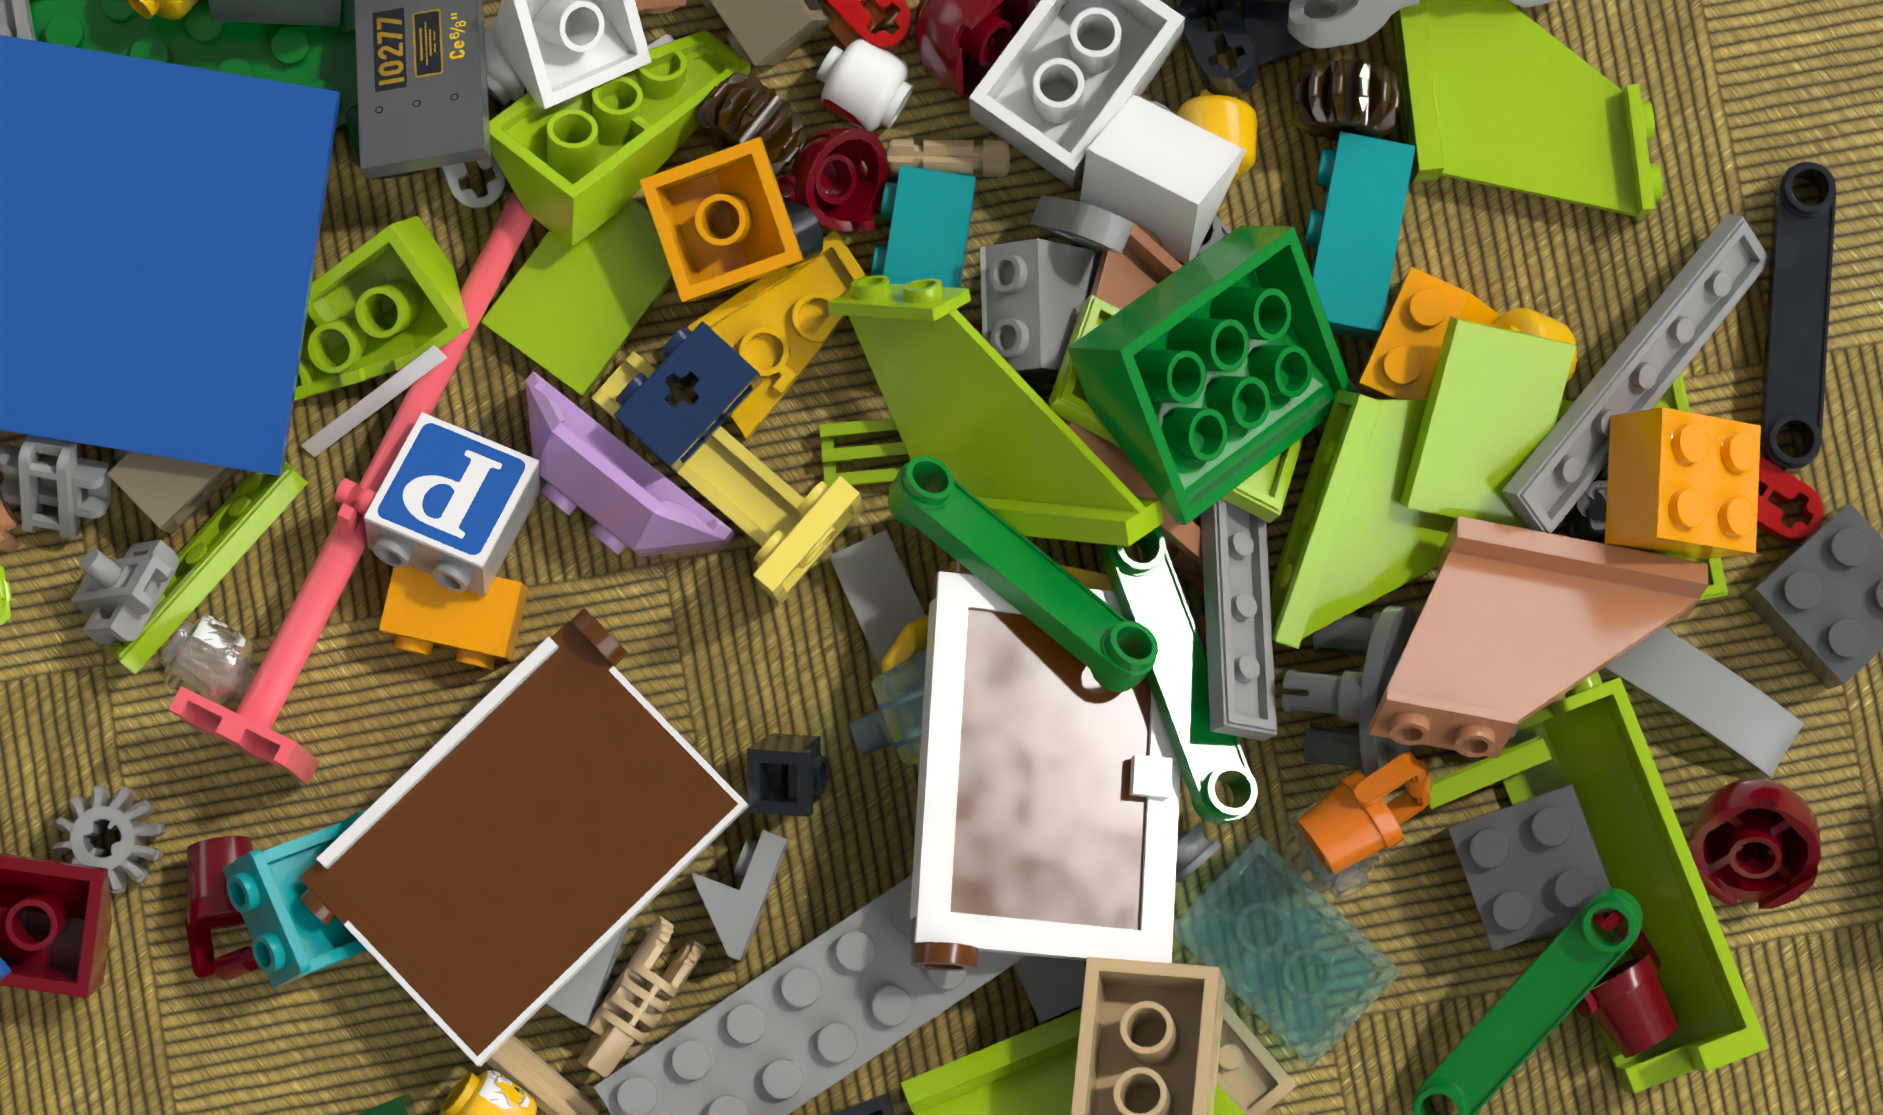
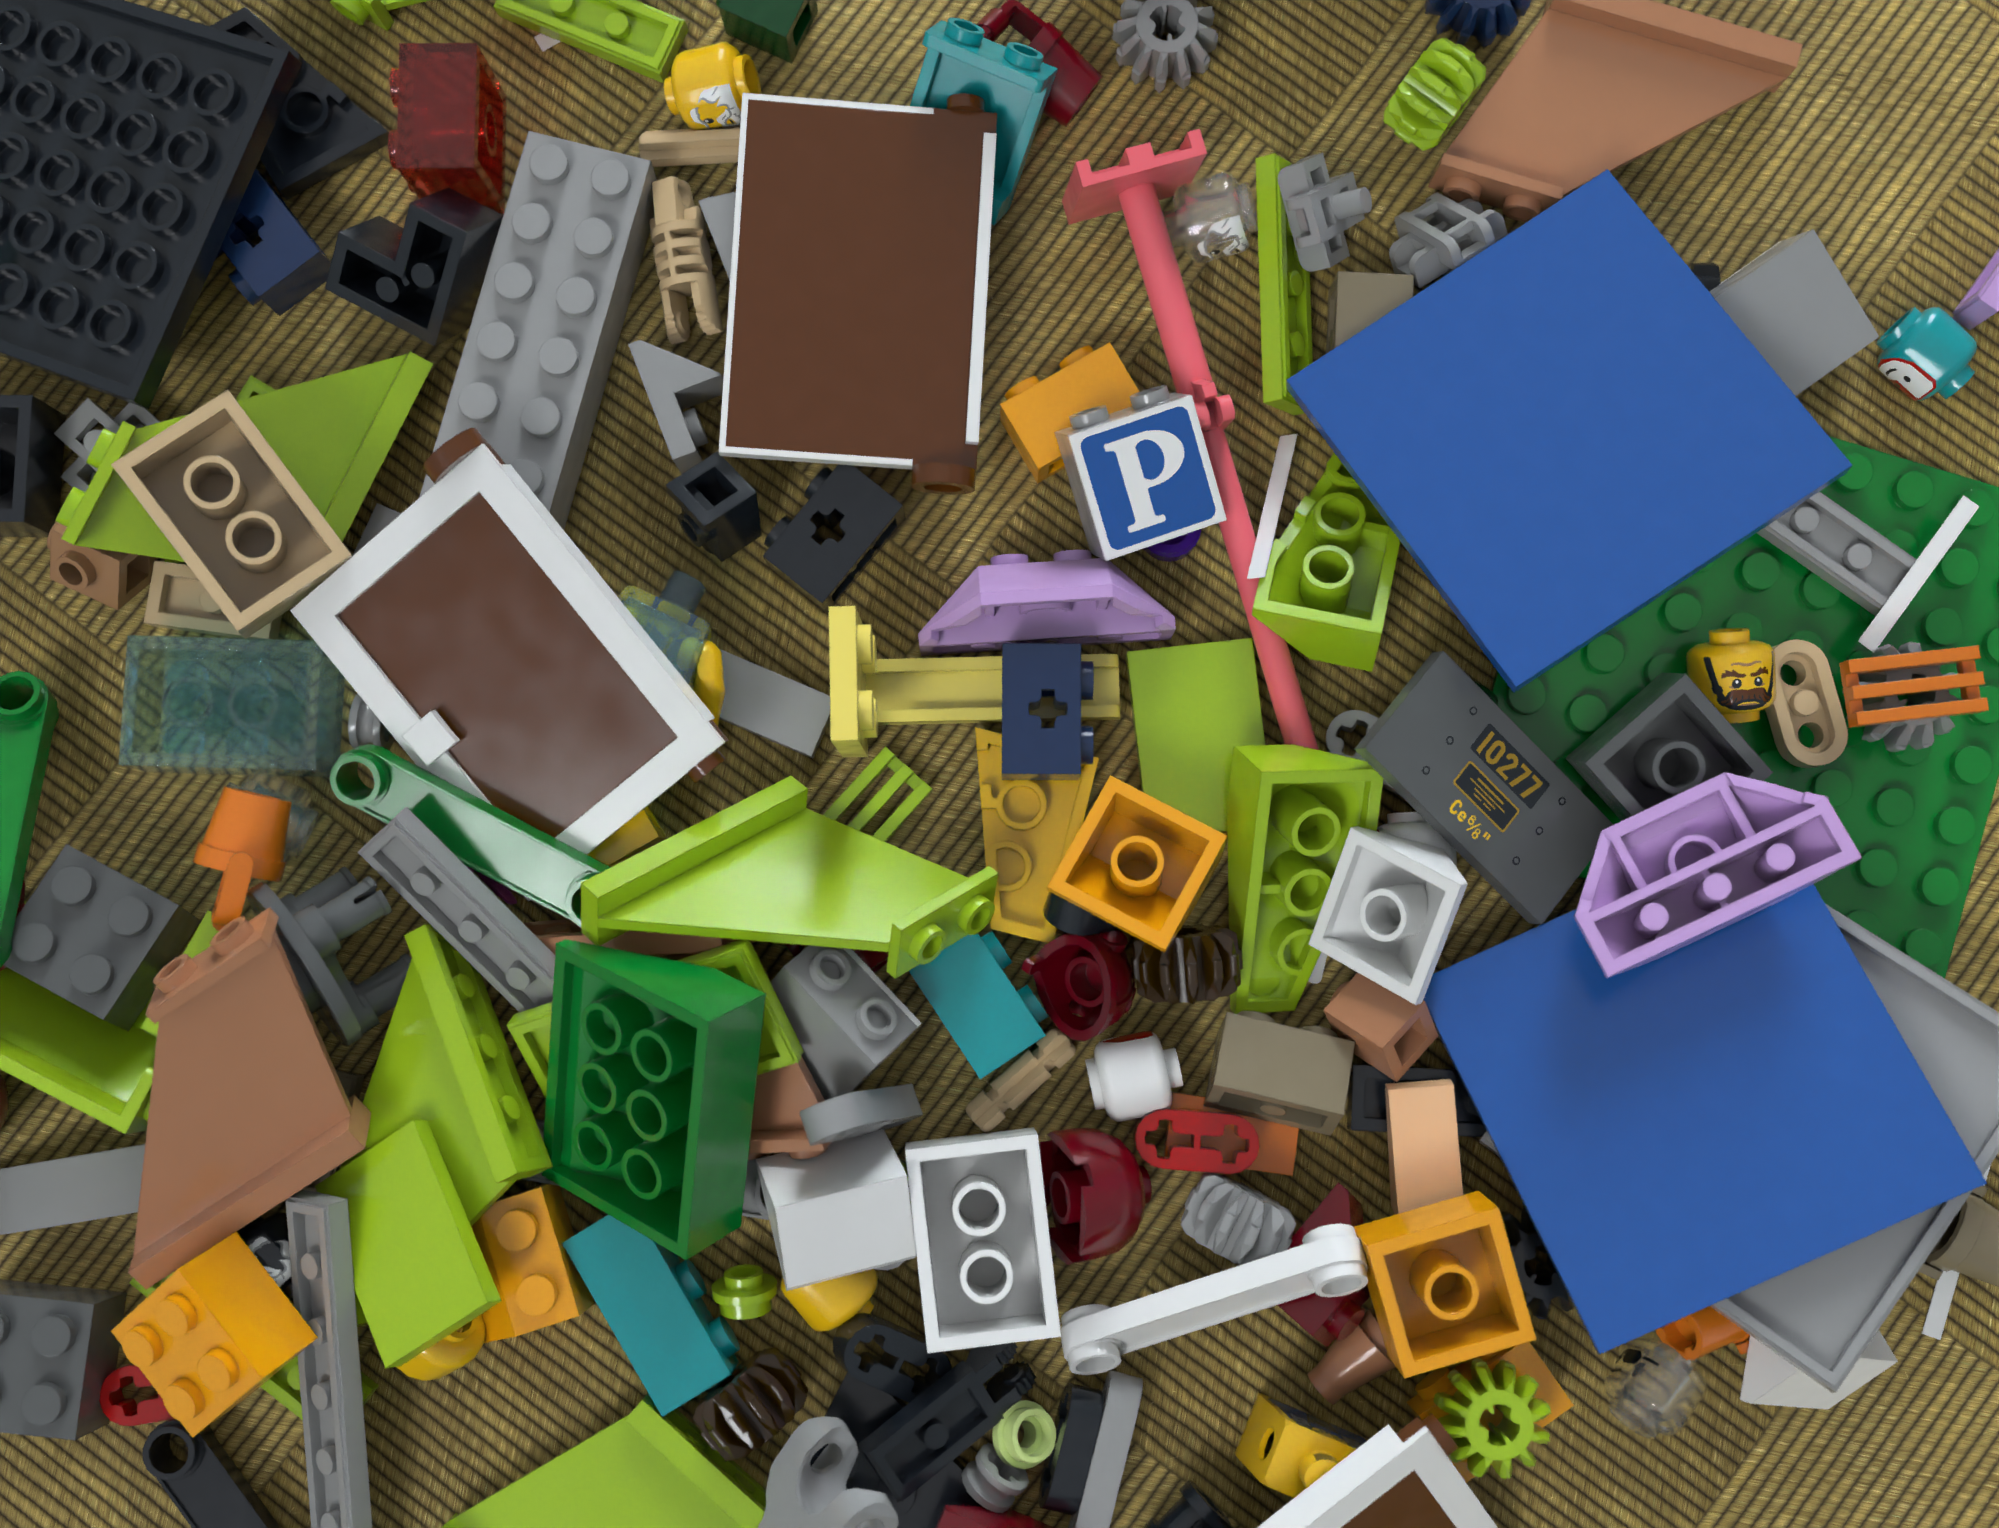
camera: 135 degrees right, 0 degrees up
(683, 666) = (828, 569): none -> black brick
(1022, 574) = (658, 798): green piece -> none
(1283, 185) = (744, 1292): none -> lime plate

